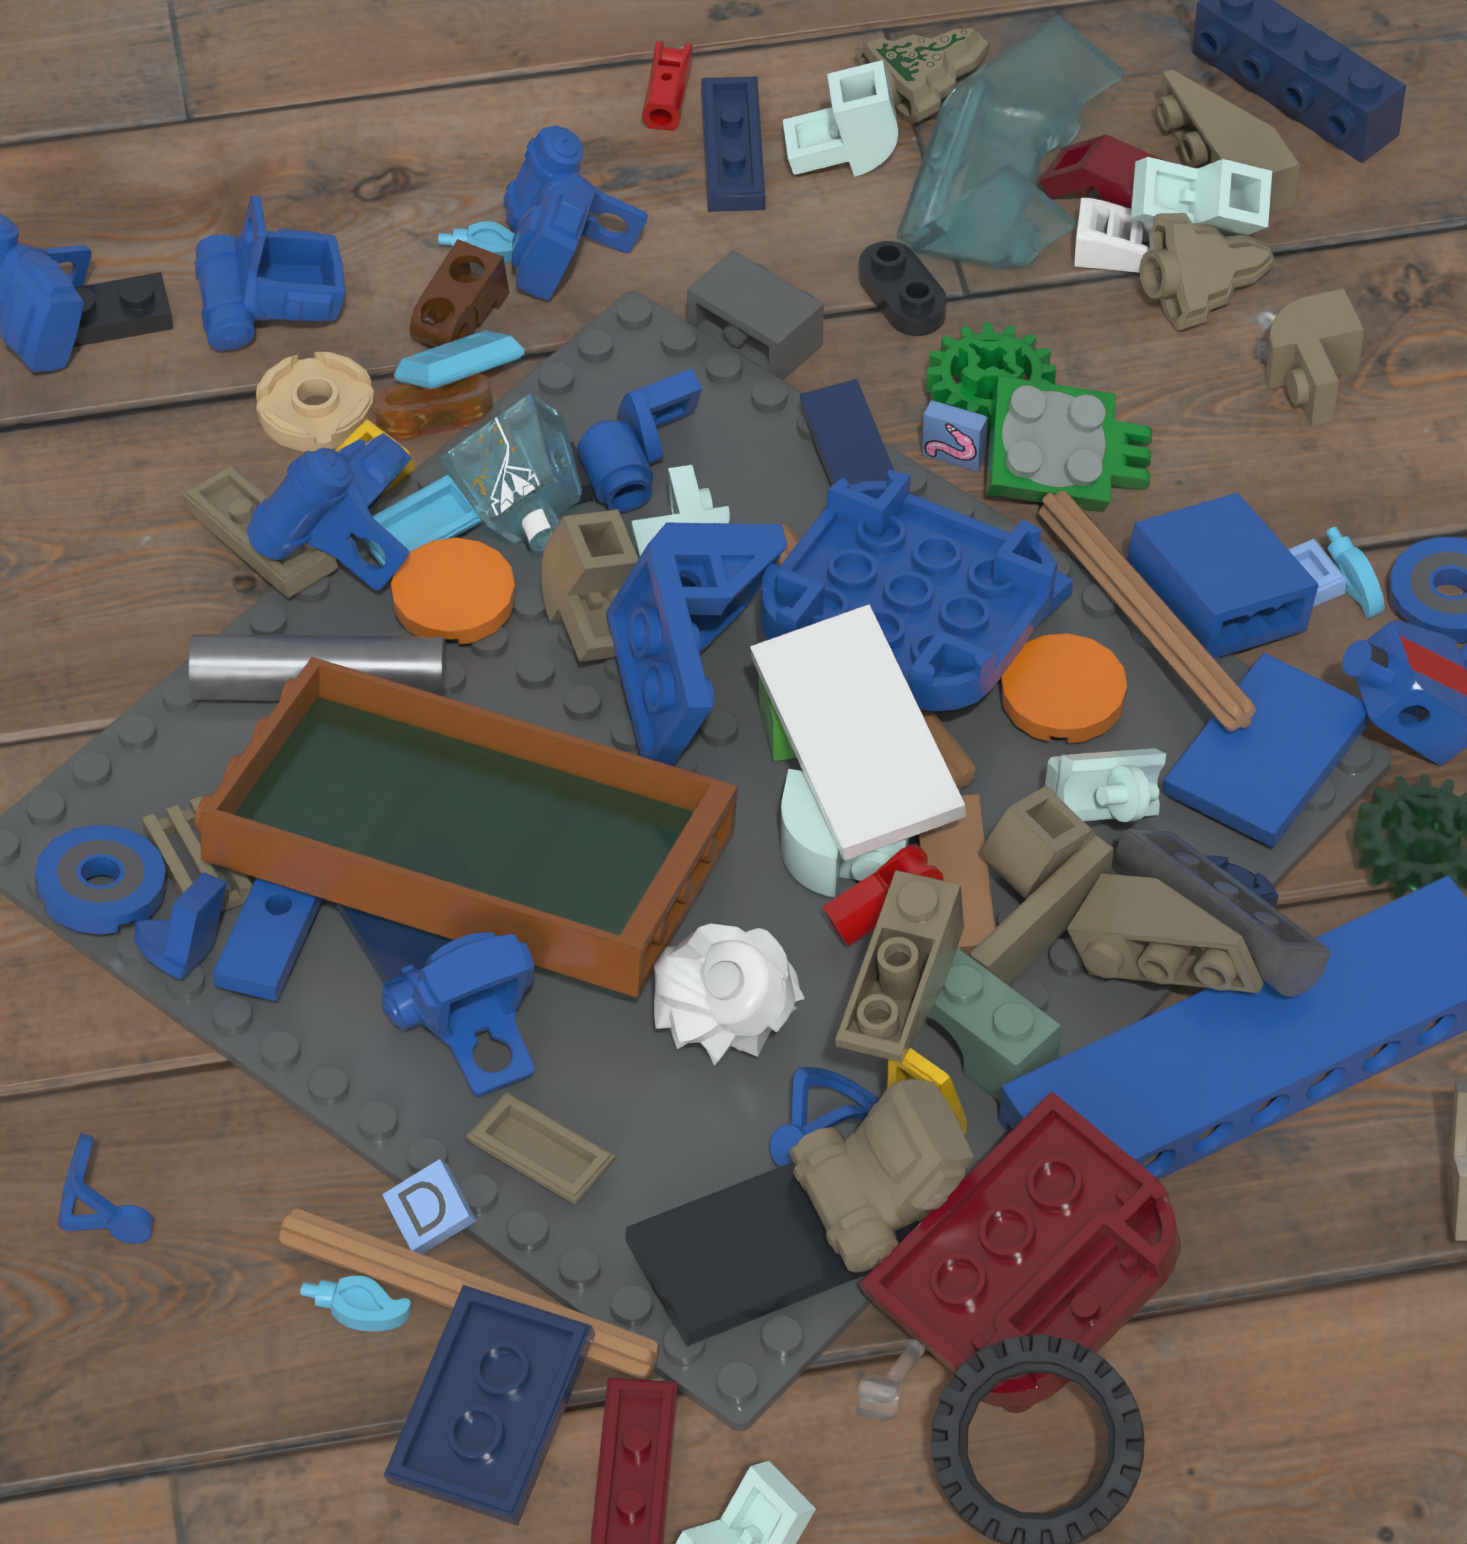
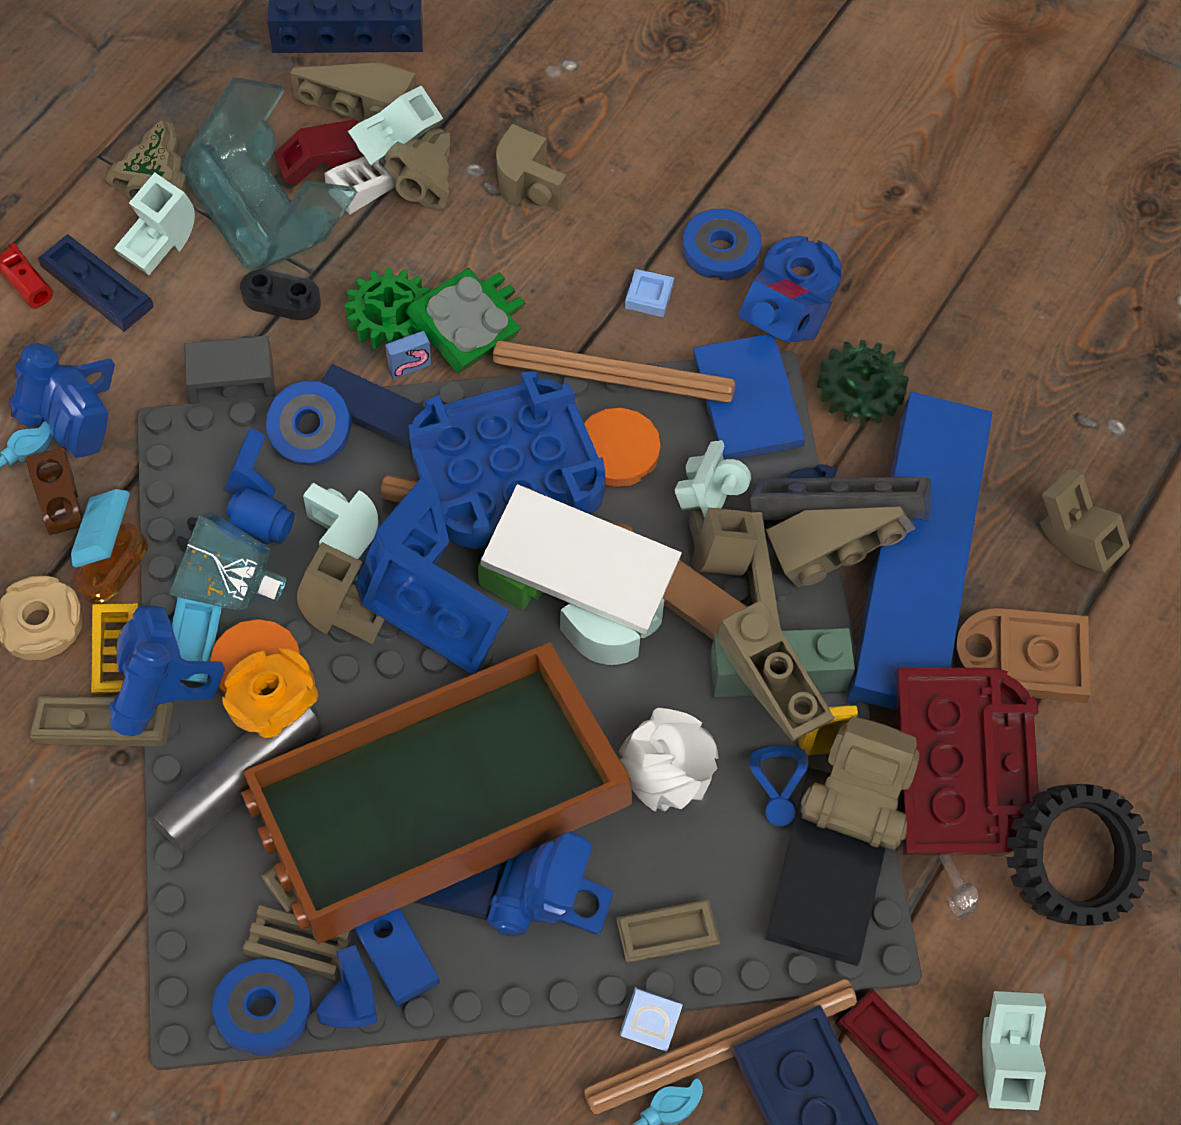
camera: 50 degrees left, 10 degrees up
(419, 610) = (274, 711): none -> light orange plate
(748, 396) = (287, 412): none -> blue tile
(858, 908) = (671, 641): red bar -> none
(1224, 574) = (624, 320): blue brick -> none
(1266, 1247) = (1036, 648): none -> medium nougat tile
(1360, 576) = (674, 267): medium azure piece -> none

